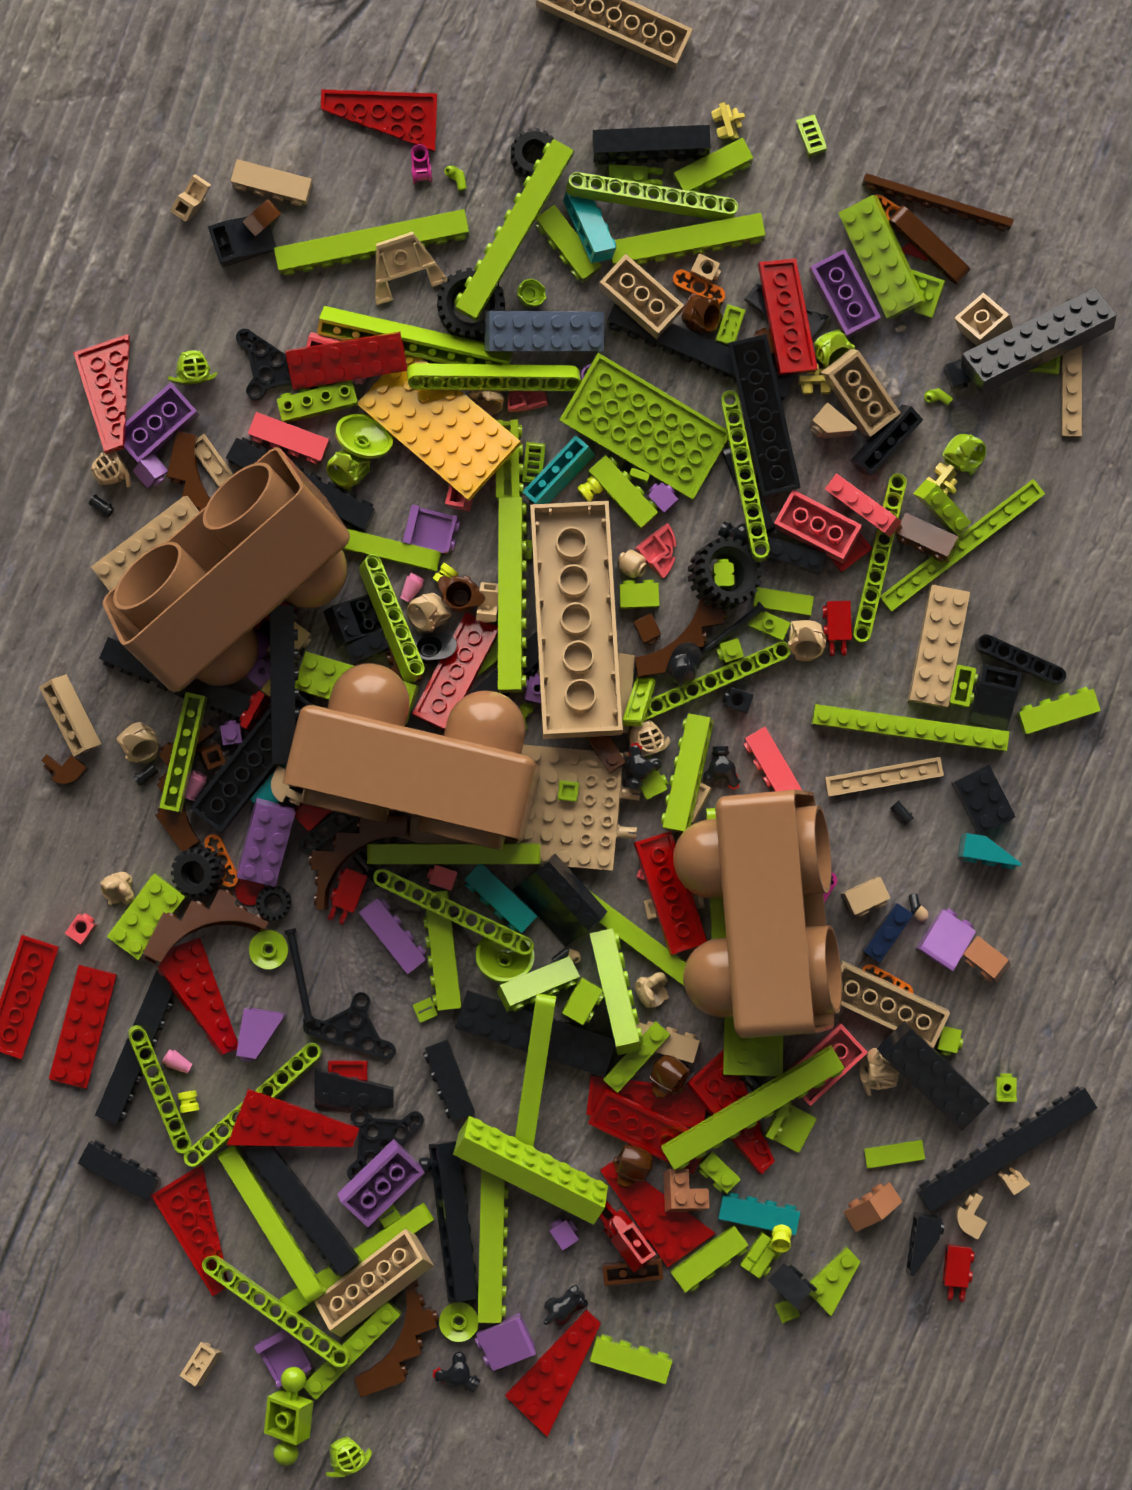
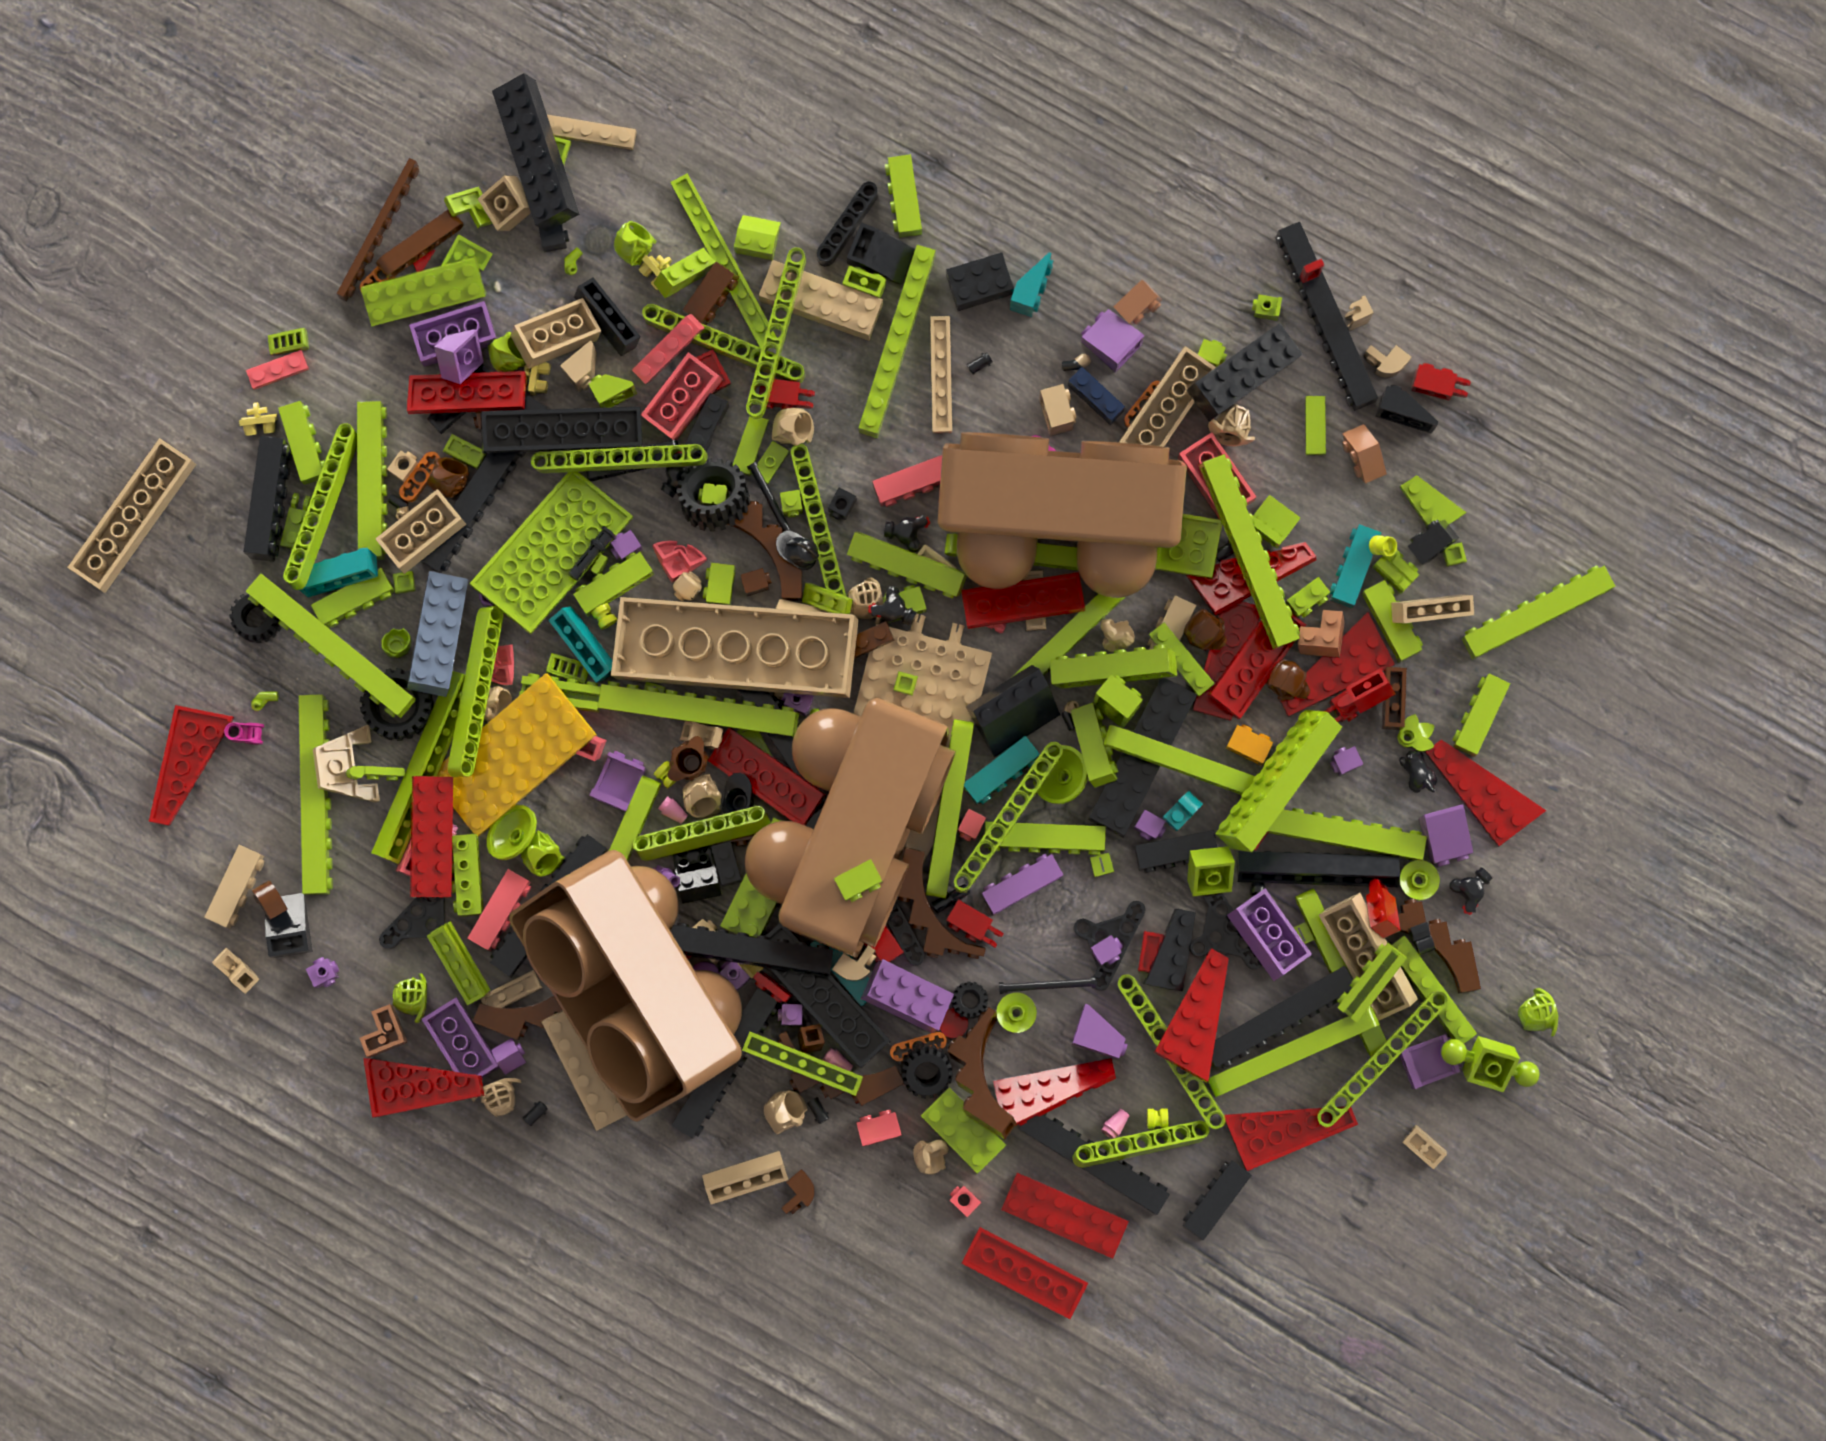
camera: 75 degrees left, 5 degrees down
(135, 835) = (879, 1128): none -> coral slope
(154, 354) = (388, 1035): none -> nougat brick
(199, 275) = (316, 972): none -> medium lavender brick
(230, 407) = (458, 963): none -> lime brick
(340, 1028) = (1107, 950): none -> medium lavender brick
(345, 1290) = (1372, 981): none -> lime brick
(346, 592) = (675, 880): none -> medium lavender axle
(351, 776) = (859, 880): none -> lime brick
(399, 1332) = (1422, 938): none -> black leg
(400, 294) = (374, 773): none -> lime hinge
(420, 1289) = (1382, 910): none -> red hinge
(432, 1116) = (1210, 871): none -> lime brick
(469, 1051) = (1150, 826): none -> medium lavender brick
(488, 1080) = (1182, 811): none -> teal brick
(565, 1135) = (1249, 745): none -> light orange brick
(591, 290) = (404, 582): none -> lime tile
(603, 1300) = (1418, 733): none -> lime plate
(655, 469) = (596, 546): none -> black pin
(667, 274) = (401, 505): none -> black arm
(726, 1296) = (1432, 608): none -> tan brick
(742, 1402) = (1538, 612): none -> lime brick
(782, 130) = (277, 369): none -> coral plate
(812, 455) = (611, 390): none -> lime slope
(821, 302) = (459, 355): none -> medium lavender slope
(905, 604) = (776, 323): none -> lime beam
(979, 283) = (468, 202): none -> lime plate
(992, 573) = (757, 237): none -> lime slope
(1046, 1127) = (1311, 270): none -> red tile

